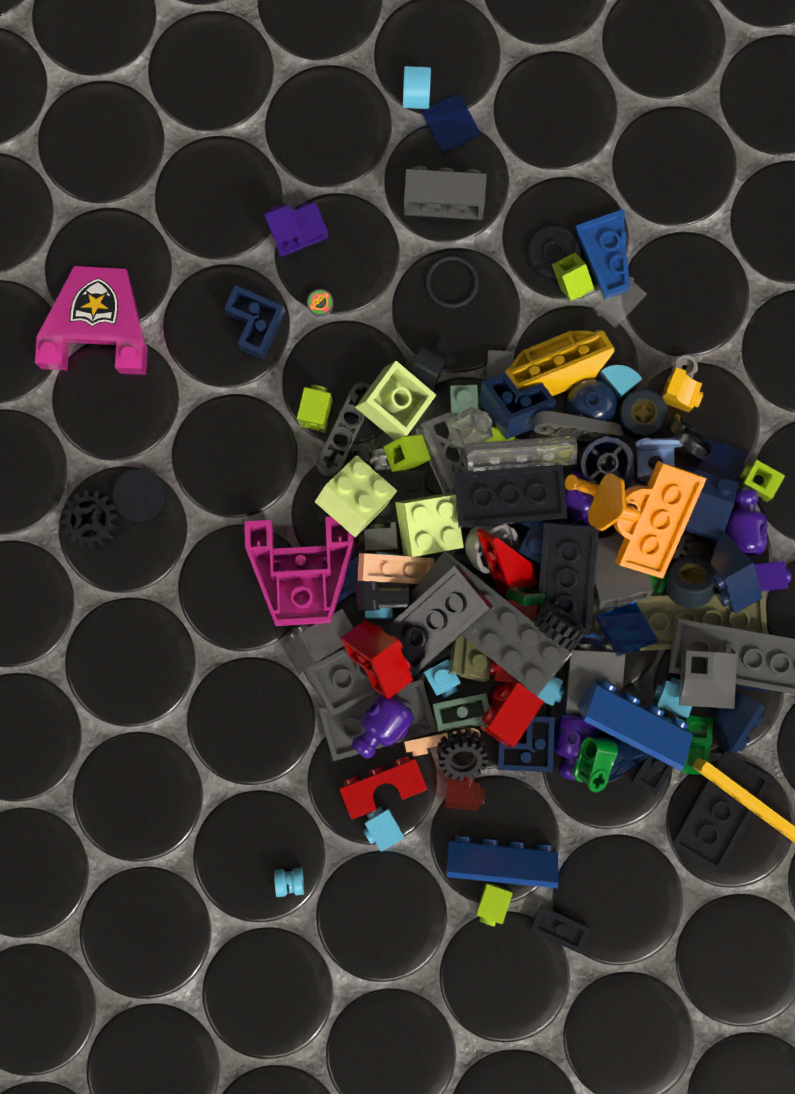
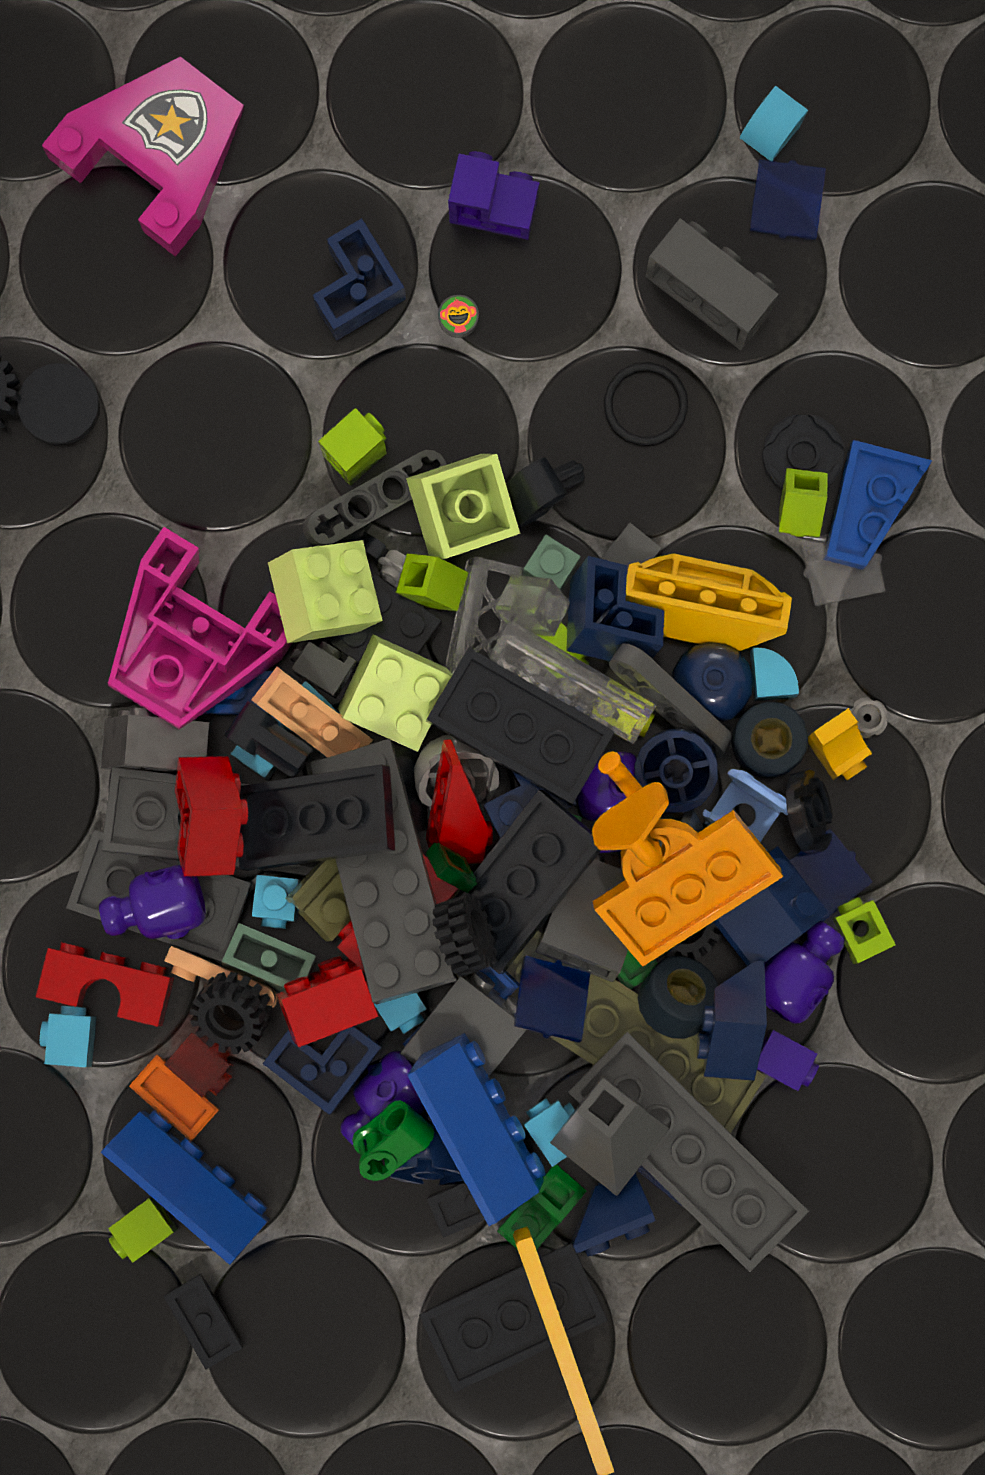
camera: 35 degrees right, 0 degrees up
(460, 822) = (173, 1098): none -> orange tile

